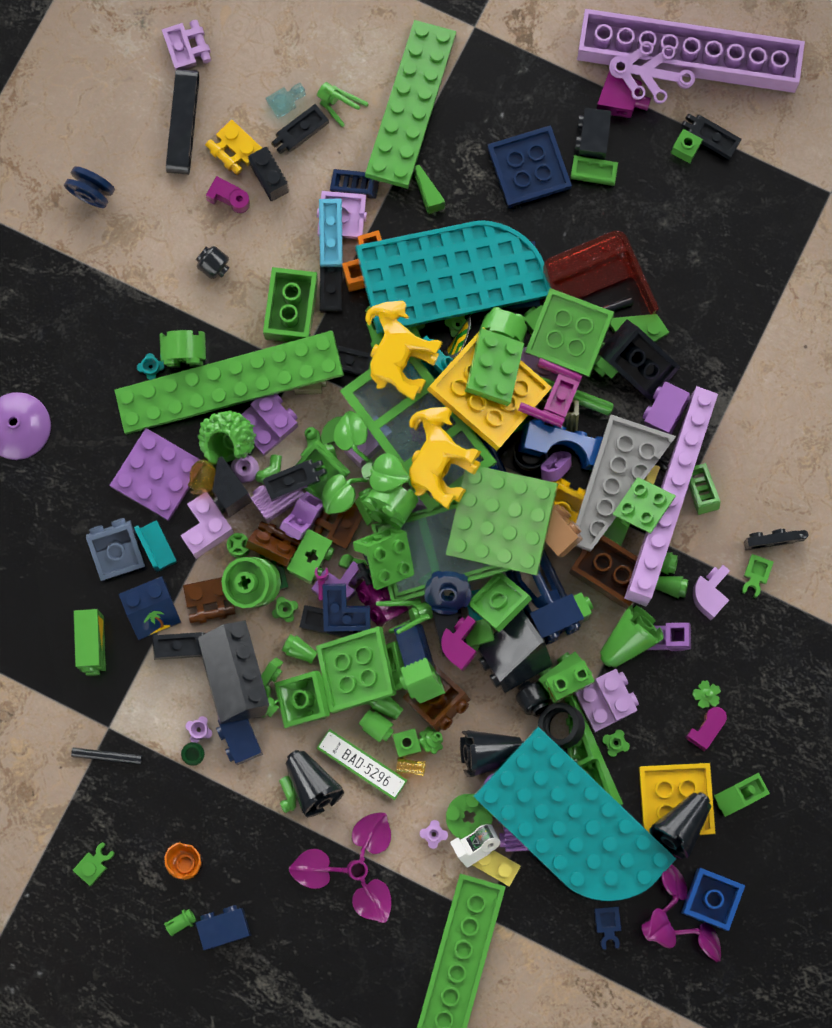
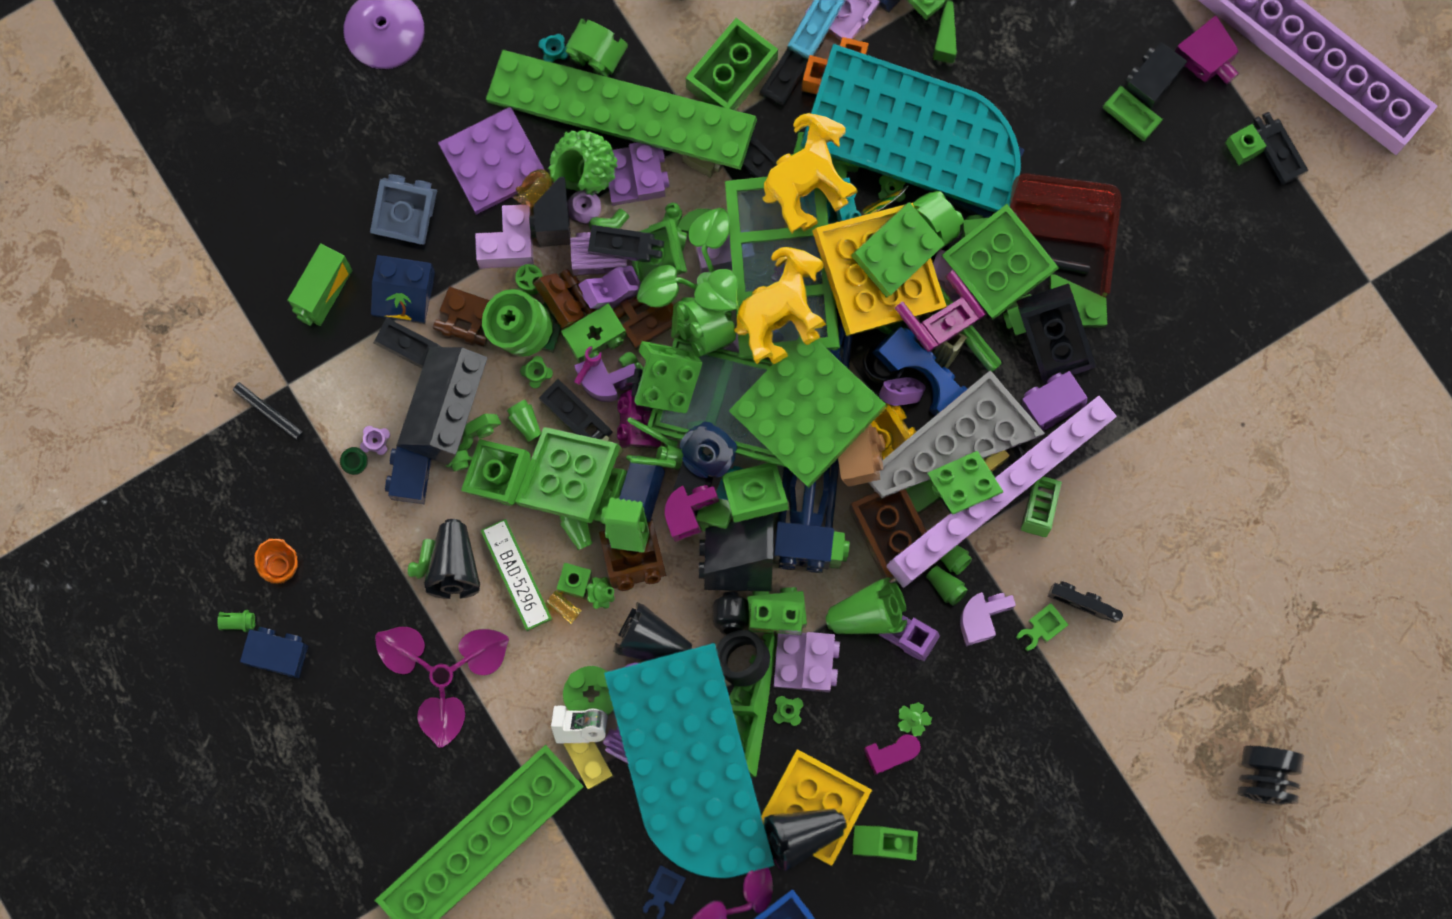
camera: 30 degrees right, 0 degrees up
(91, 866) = (184, 512): bright green plate -> none
(156, 546) = (446, 230): teal panel -> none
(338, 615) = (584, 408): dark blue plate -> none
(376, 726) = (554, 544): bright green brick -> none
(427, 834) = (548, 682): lavender plate -> none
(529, 166) = (1067, 70): dark blue plate -> none
(648, 72) = (1251, 42): lavender plant -> none

